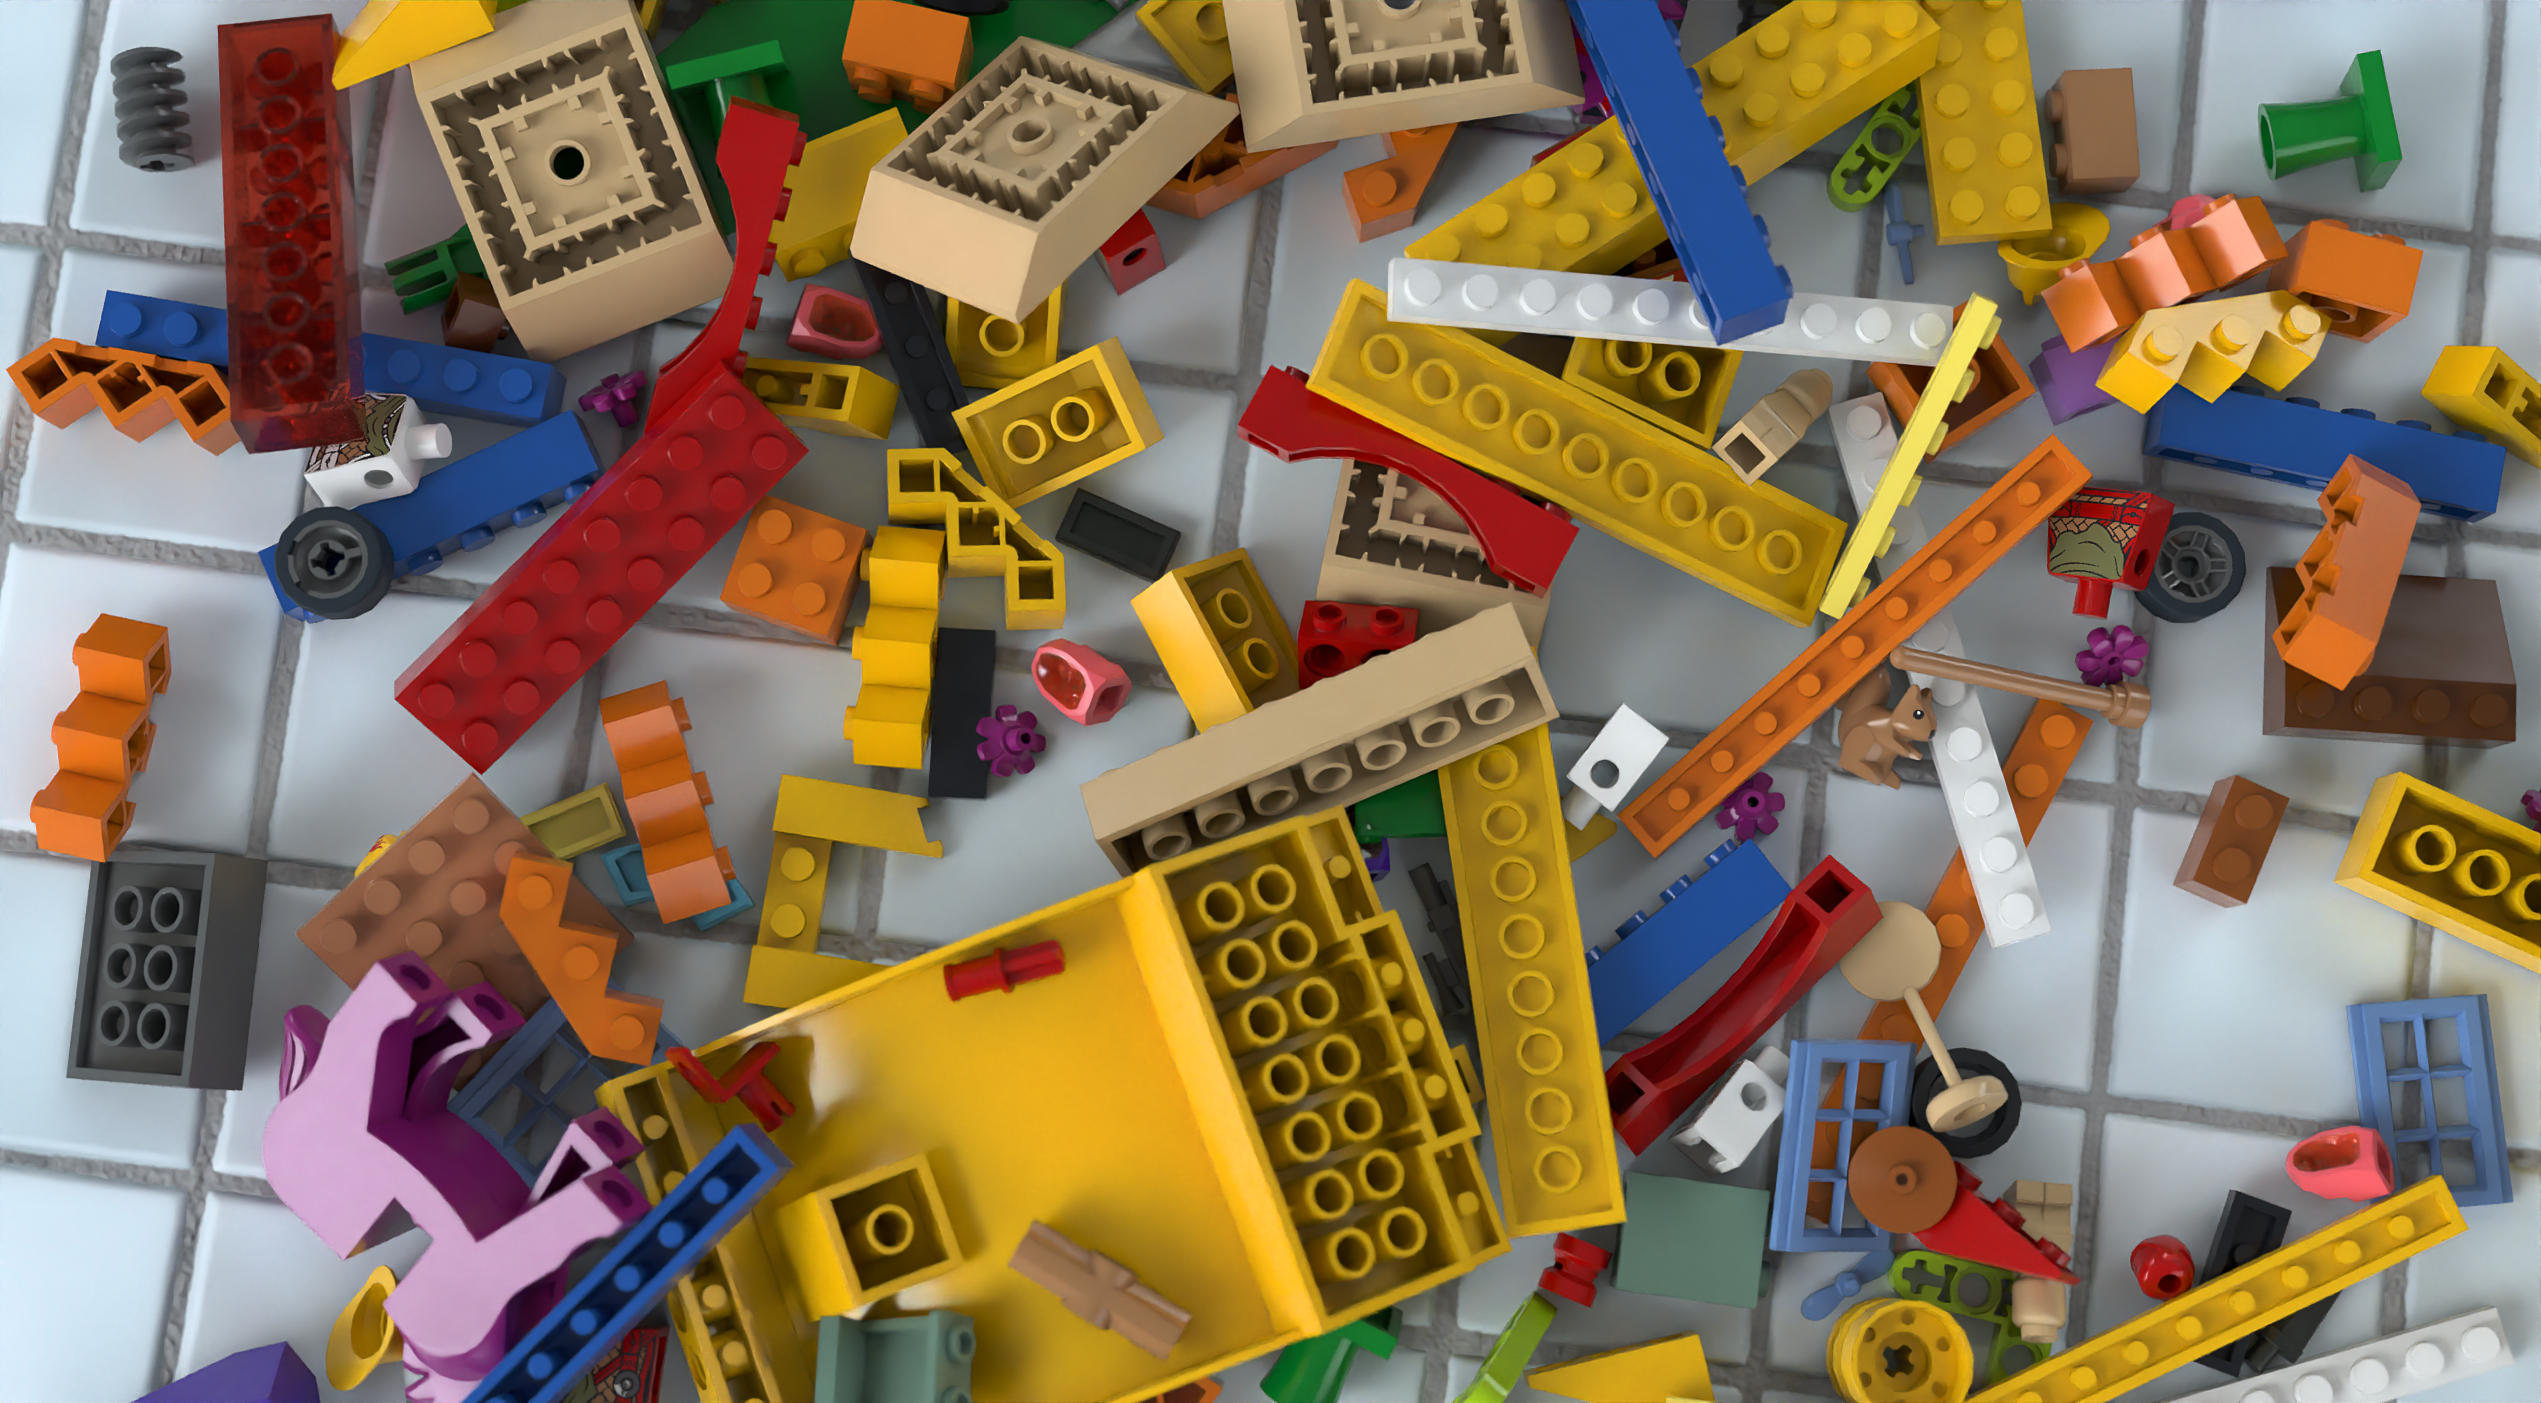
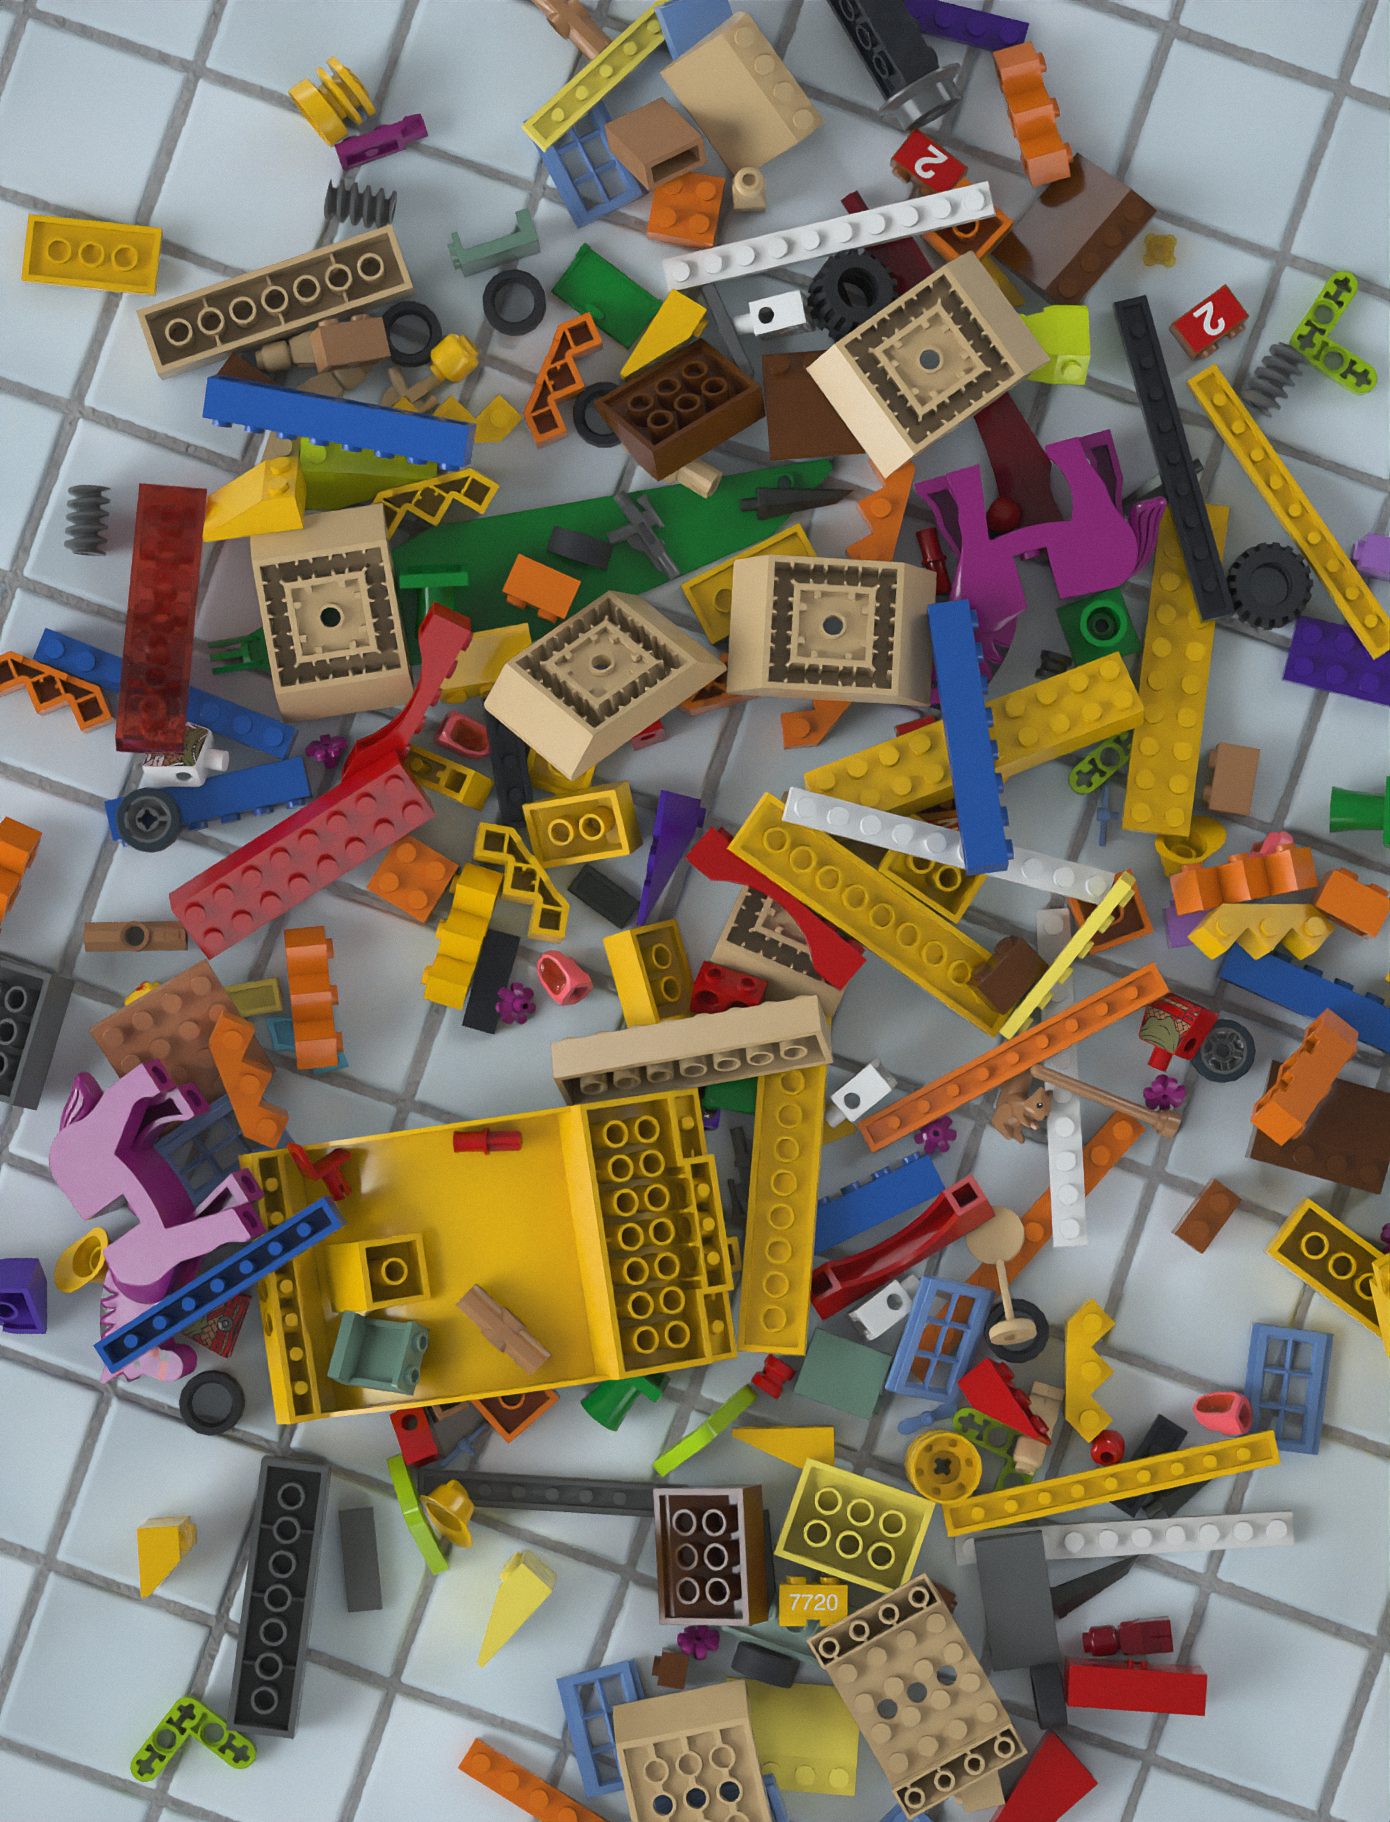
camera: 15 degrees right, 5 degrees up
(324, 774) = (114, 936): none -> medium nougat piece
(473, 315) = (254, 686): reddish brown plate -> none
(807, 825) = (388, 1027): yellow wedge -> none
(1210, 403) = (672, 833): none -> dark purple wedge
(1775, 424) = (1000, 916): tan piece -> none
(1811, 512) = (1006, 974): none -> reddish brown brick
(1902, 1179) = (967, 1366): dark orange piece -> none
(2094, 1142) = (1085, 1369): none -> yellow brick

